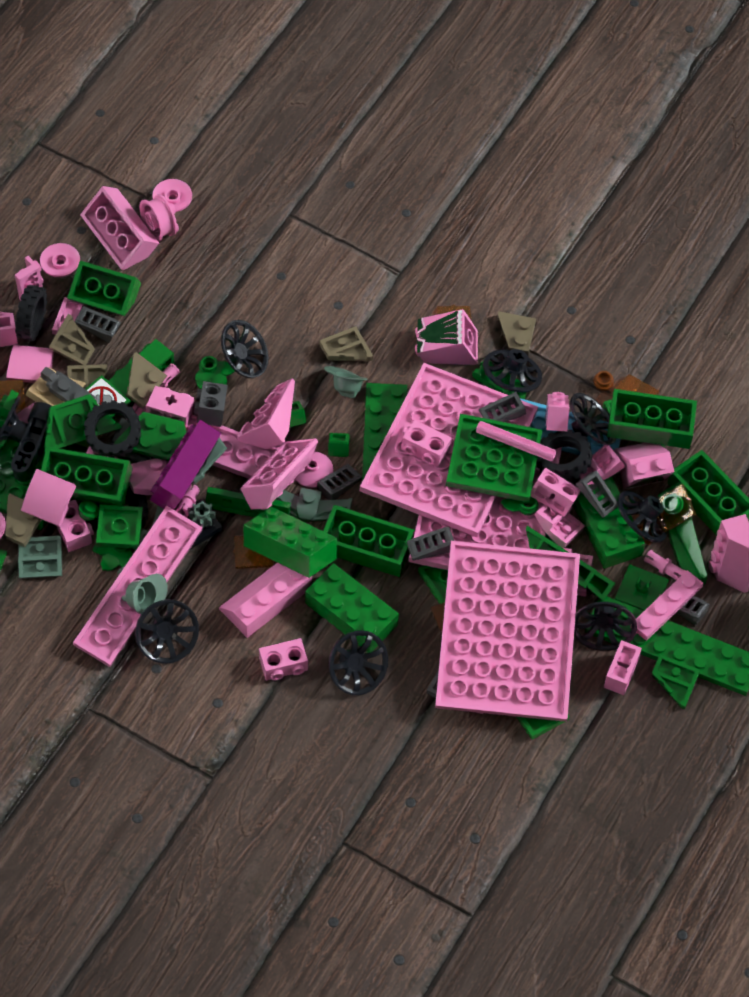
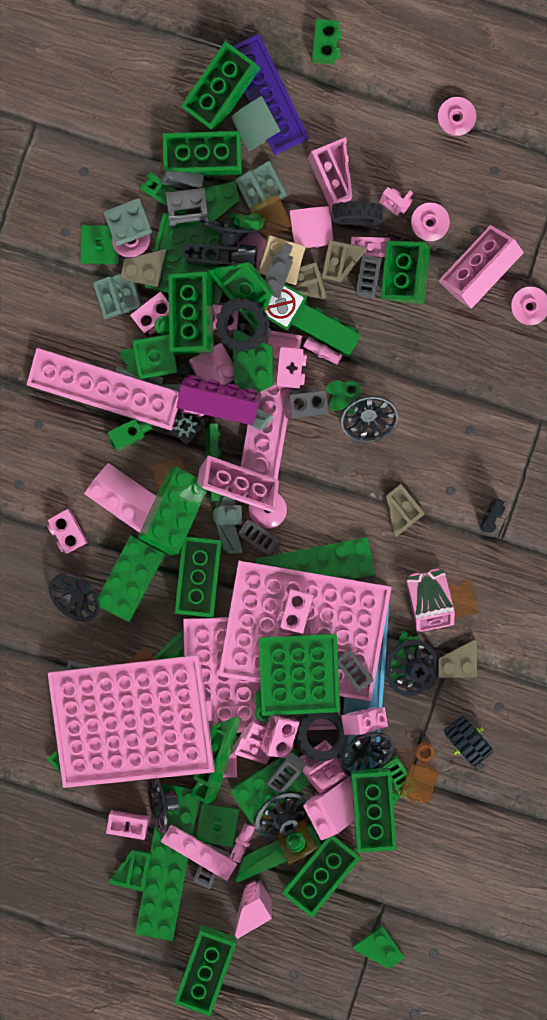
camera: 80 degrees right, 30 degrees up
(48, 497) = (160, 287): bright pink slope -> none
(142, 380) = (310, 336): dark tan wing -> none
(145, 592) = (89, 397): sand green piece -> none
(159, 216) = (496, 301): bright pink wheel -> none
(165, 630) = (68, 422): black wheel -> none
(194, 569) = (120, 439): none -> green torso
(271, 420) = (298, 461): bright pink wedge -> none
(297, 414) = (321, 478): green slope -> none
(338, 444) = (299, 526): green slope -> none
(345, 382) = (365, 518): sand green piece -> none
(367, 265) = (494, 510): none -> black plate
(438, 536) = (205, 651): dark grey slope -> none
(516, 441) = (316, 693): bright pink axle -> none
(599, 331) = (468, 741): none -> black wheel

